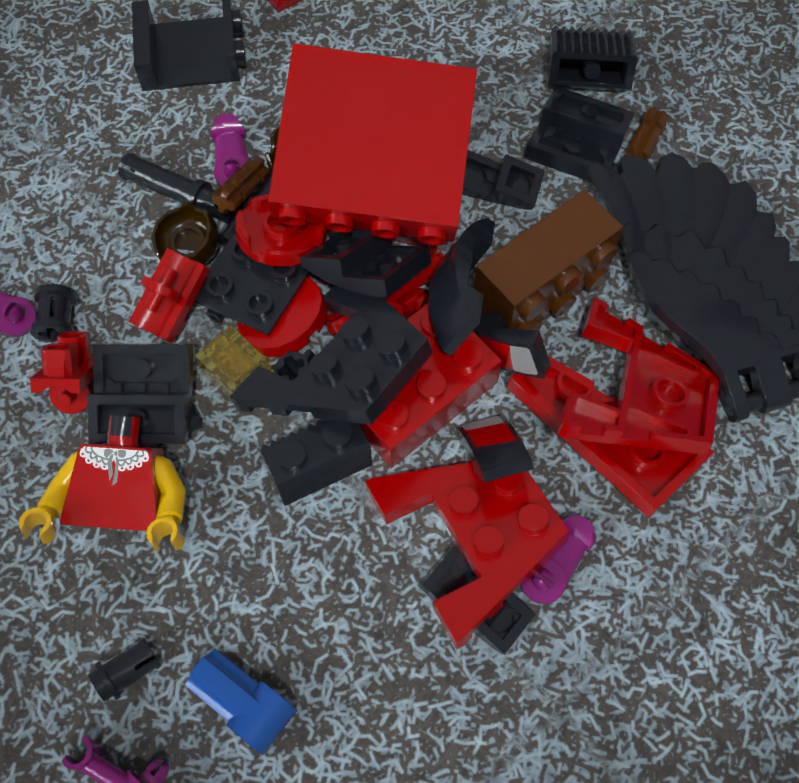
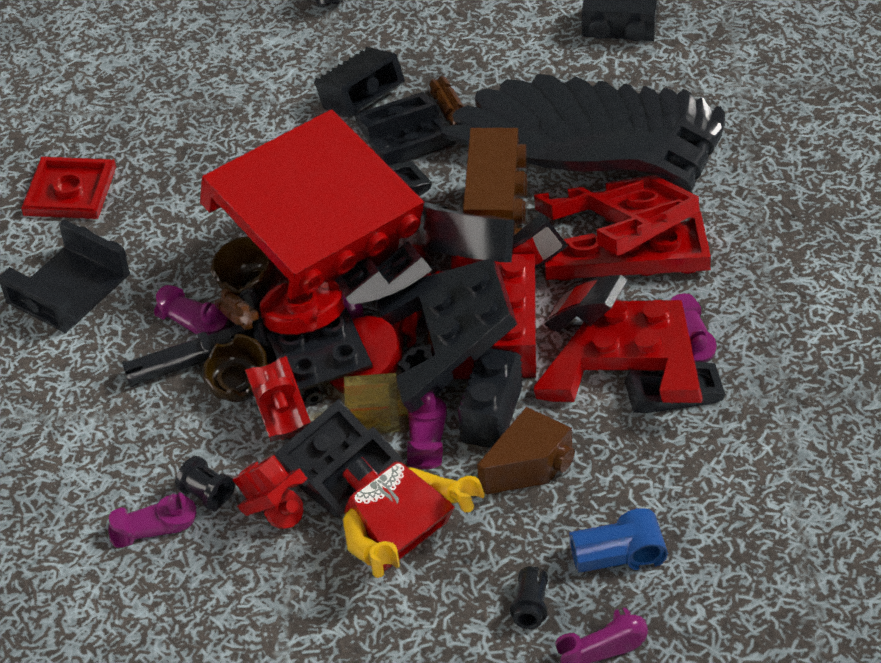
camera: 45 degrees left, 20 degrees down
(245, 435) = (426, 433): none -> magenta piece
(280, 536) = (527, 454): none -> reddish brown slope

